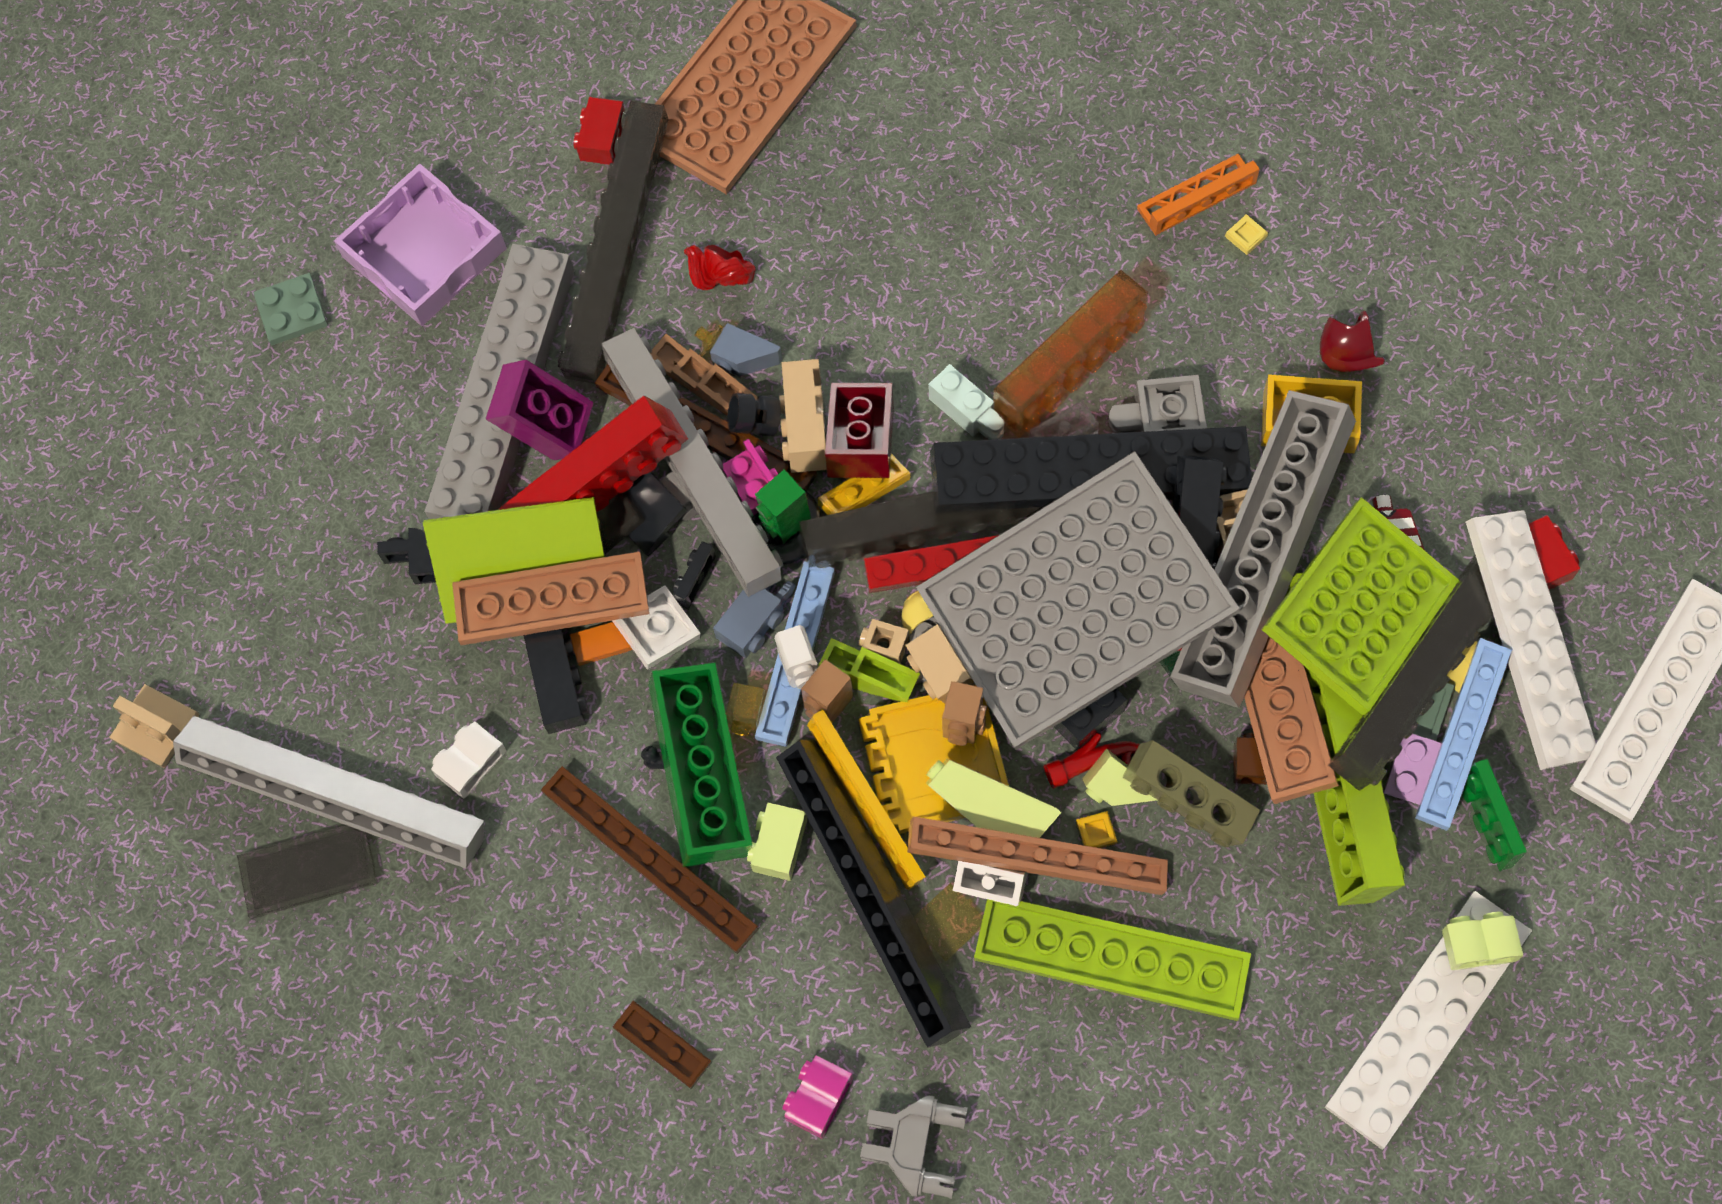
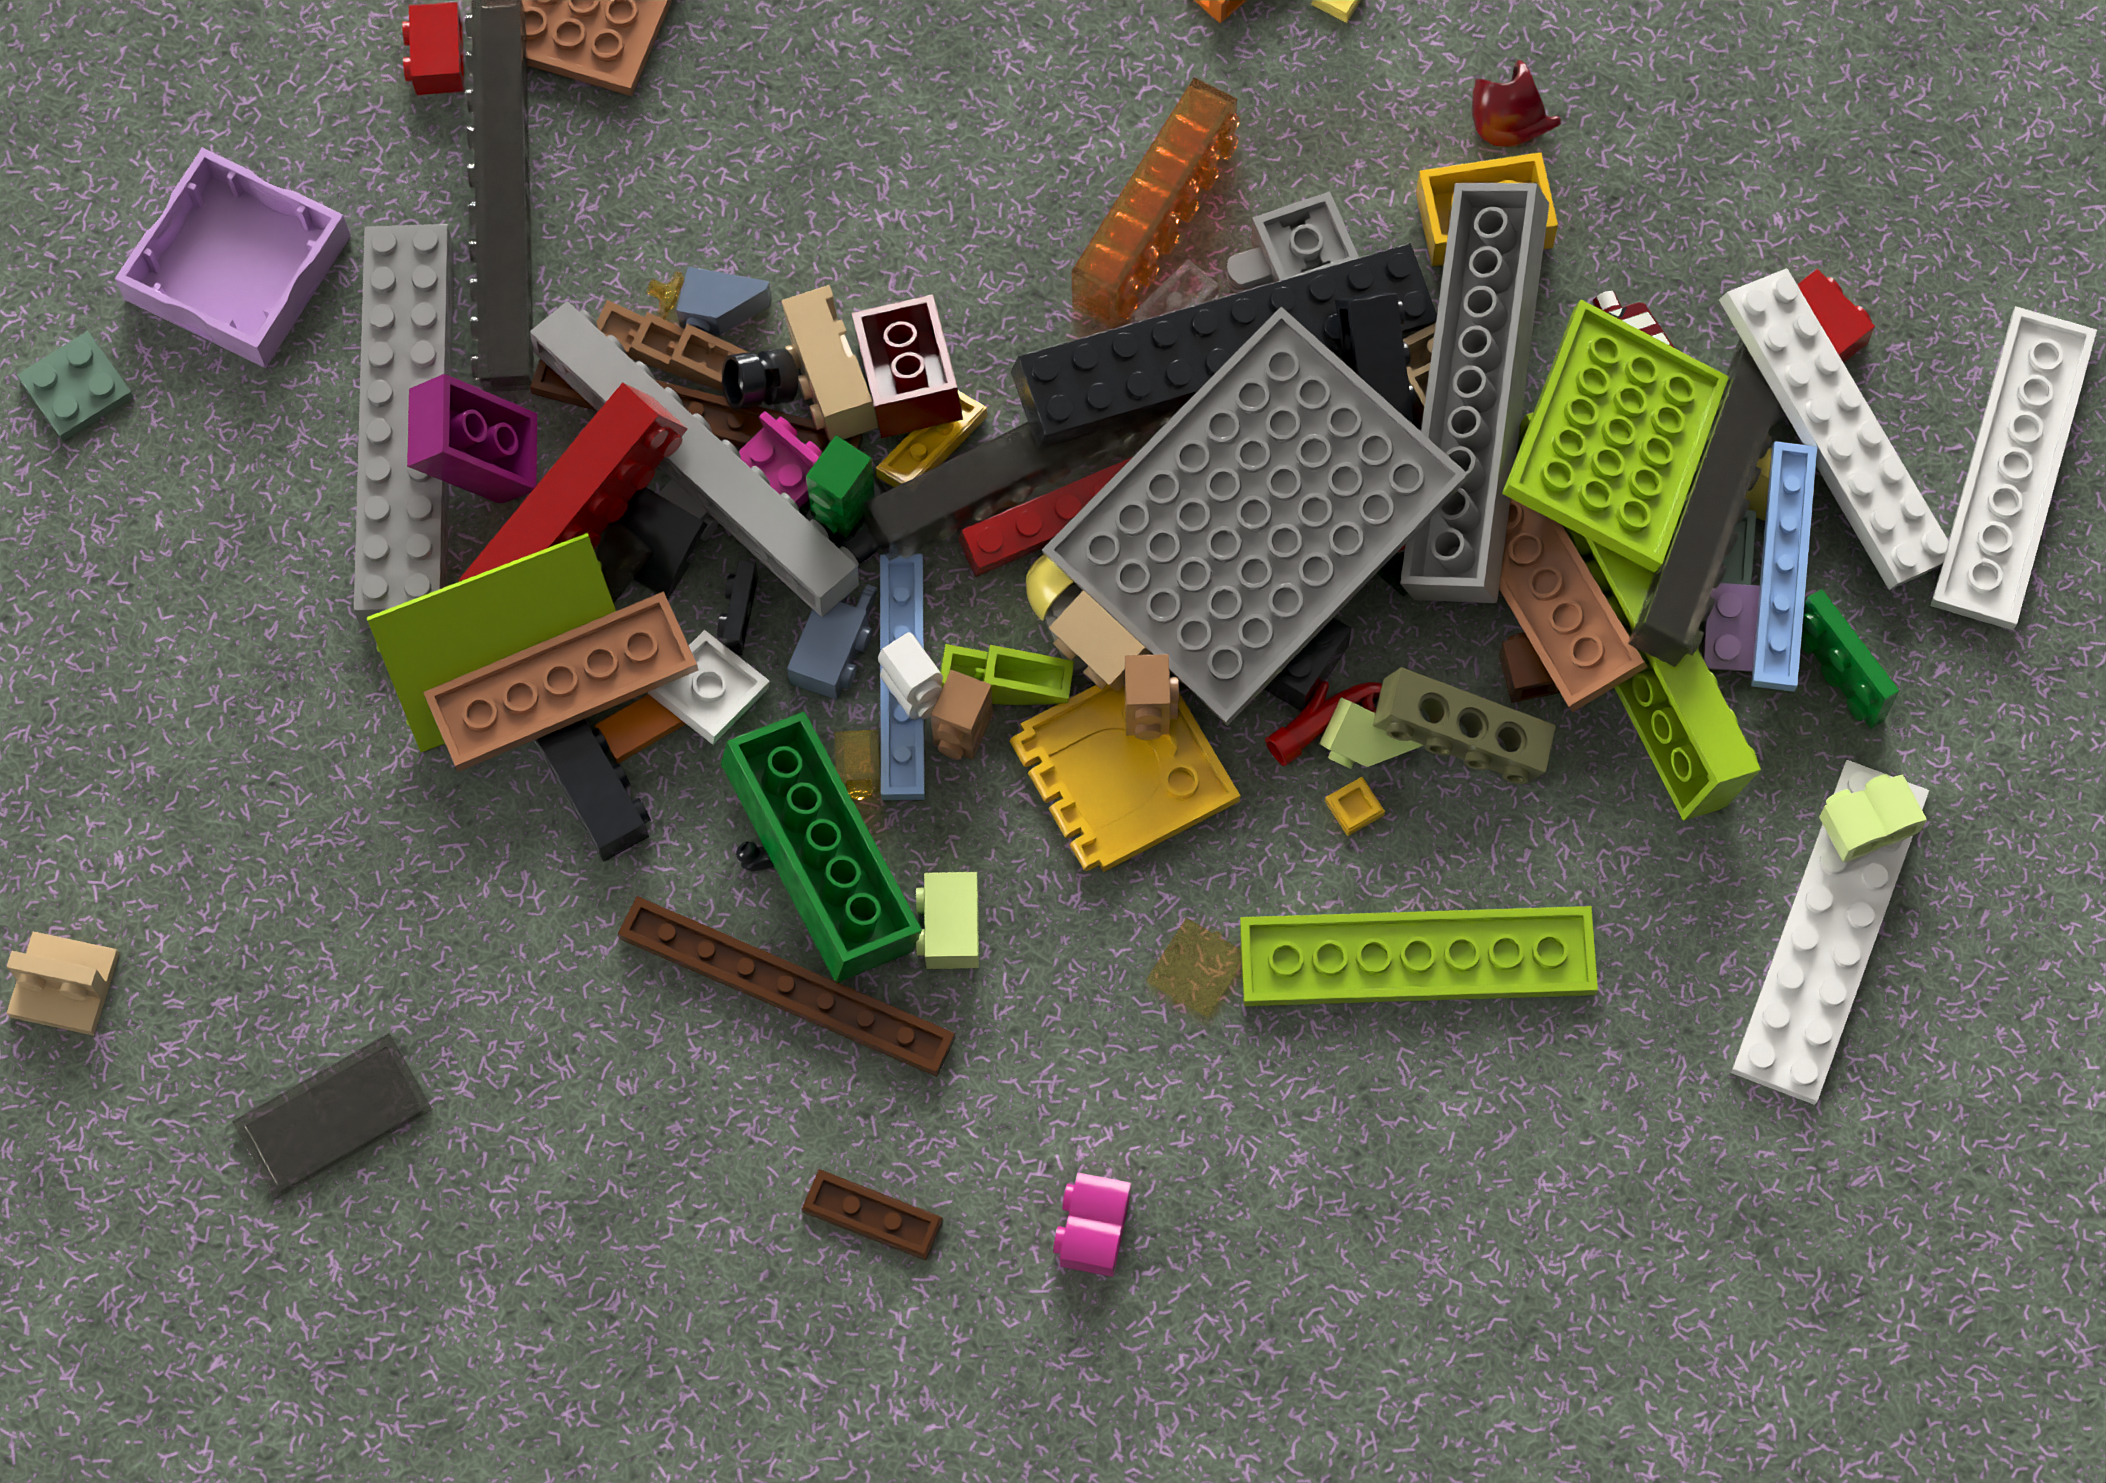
camera: 20 degrees left, 0 degrees up
(329, 791) = (332, 1006): brick -> none
(411, 550) = (355, 664): black brick -> none
(468, 759) = (507, 919): white brick -> none
(717, 267) = (650, 196): red hair -> none
(865, 800) = (1050, 838): yellow tile -> none
(874, 894) = (1092, 951): black brick -> none
(880, 631) = (1023, 621): tan brick -> none
(910, 1141) = (1227, 1252): light grey connector -> none
(966, 404) = (1035, 300): light aqua hinge -> none
(990, 802) = (1222, 807): yellowish green slope -> none
(990, 882) = (1238, 895): white brick -> none
(1037, 855) = (1291, 850): nougat plate -> none

